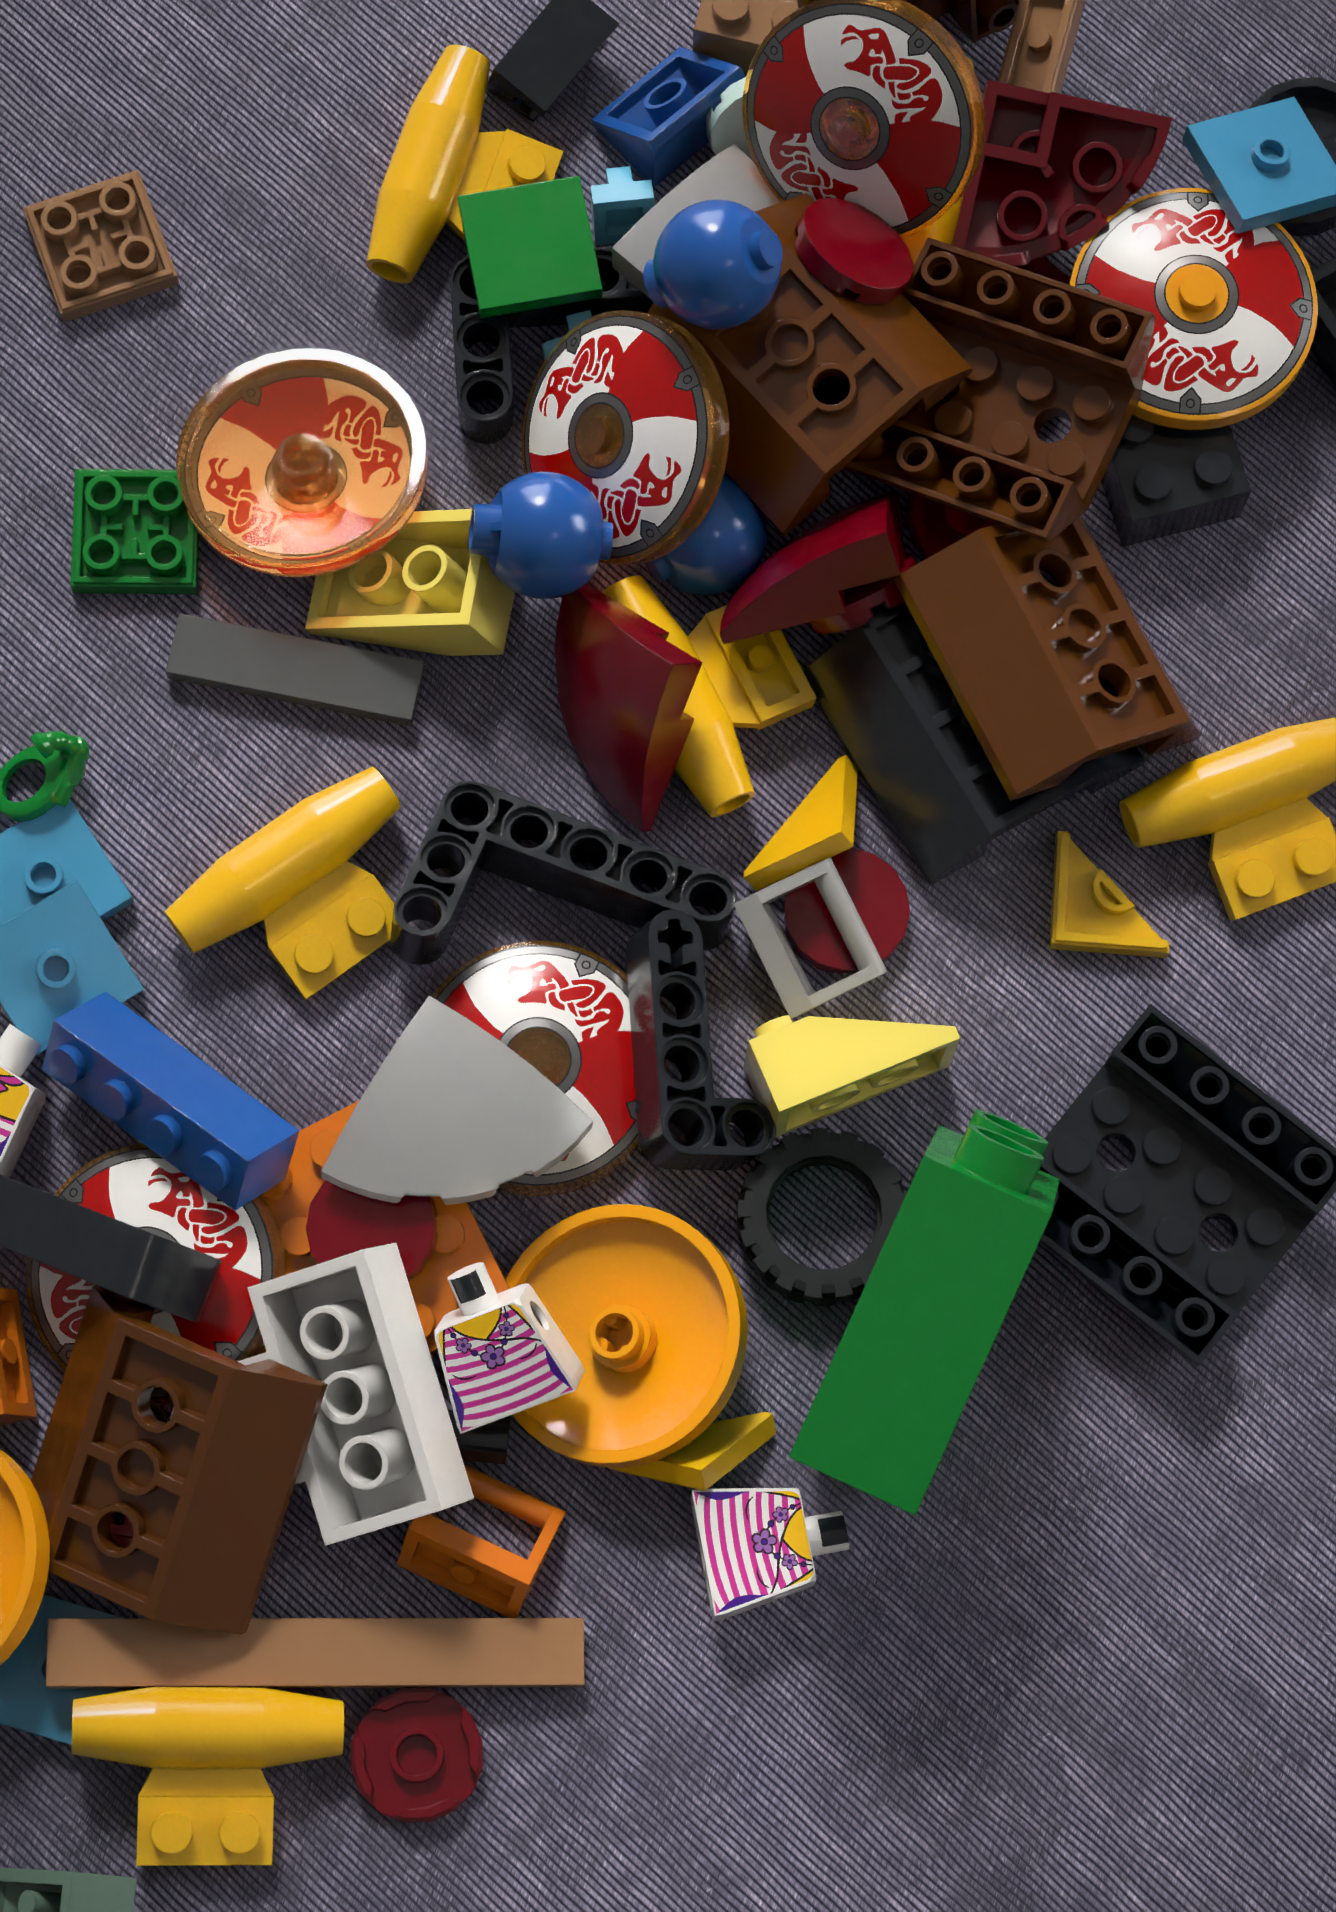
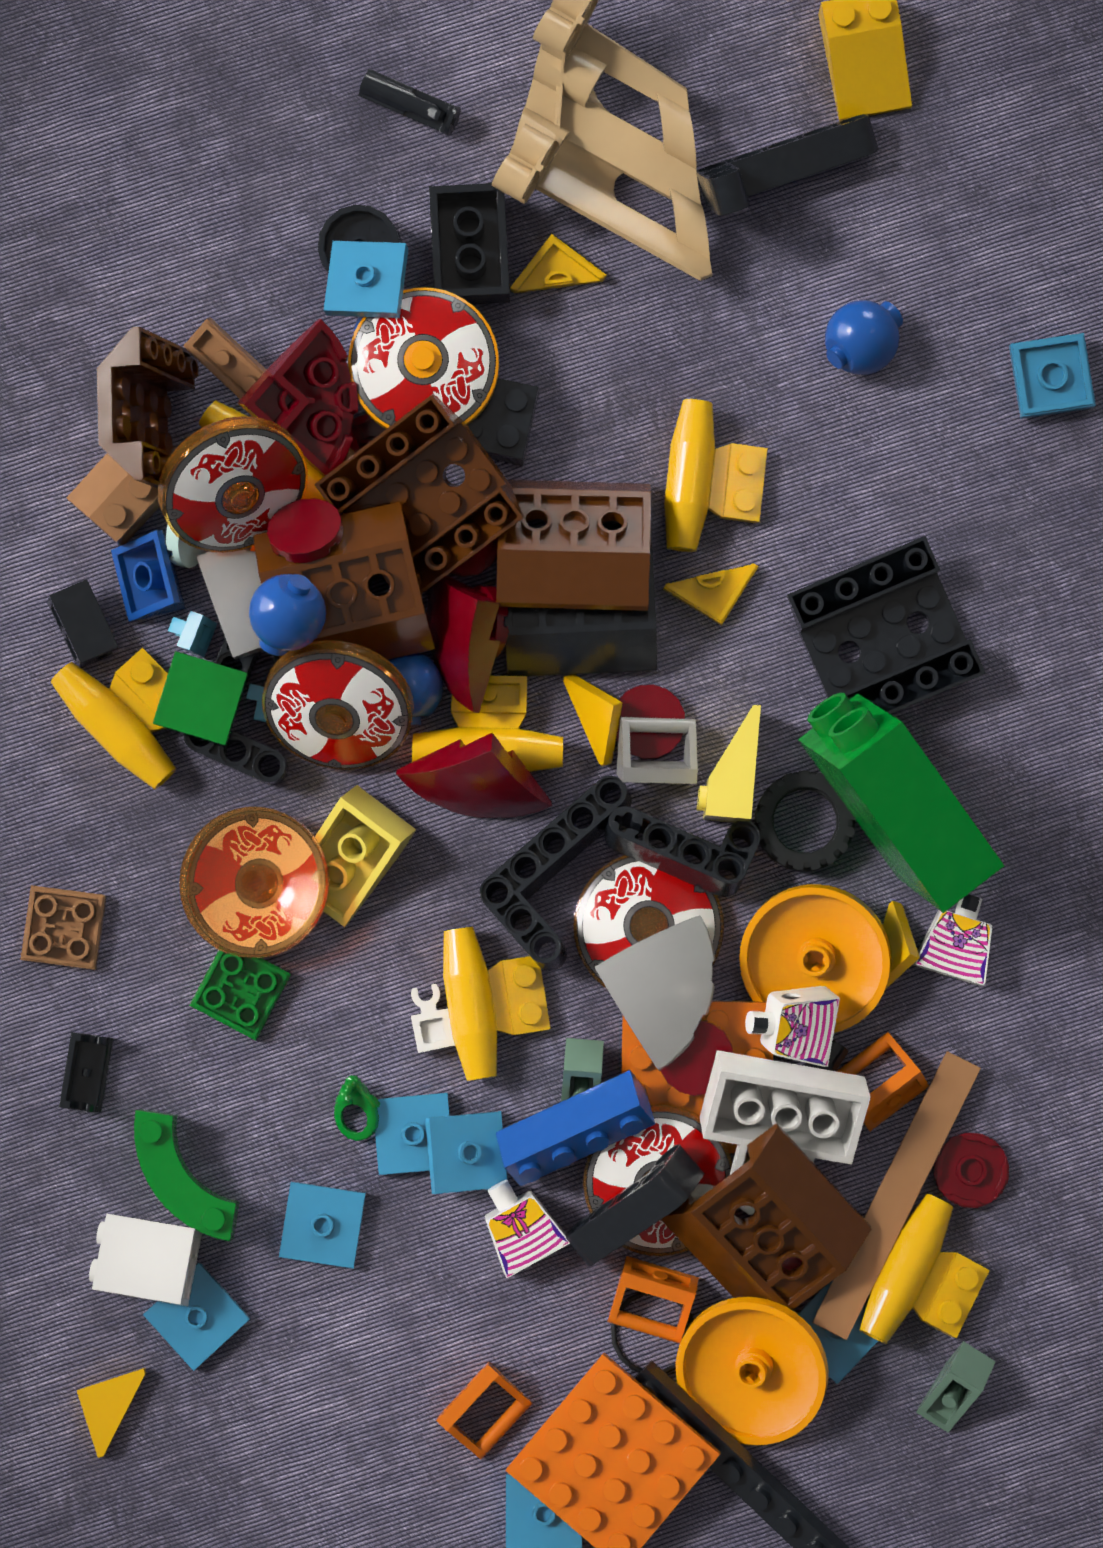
camera: 55 degrees left, 10 degrees up
(222, 822) = (432, 1026): none -> white plate
(272, 1066) = (581, 1066): none -> sand green slope
(295, 669) = (364, 943): dark grey tile -> none
(541, 535) = (372, 778): blue brick -> none

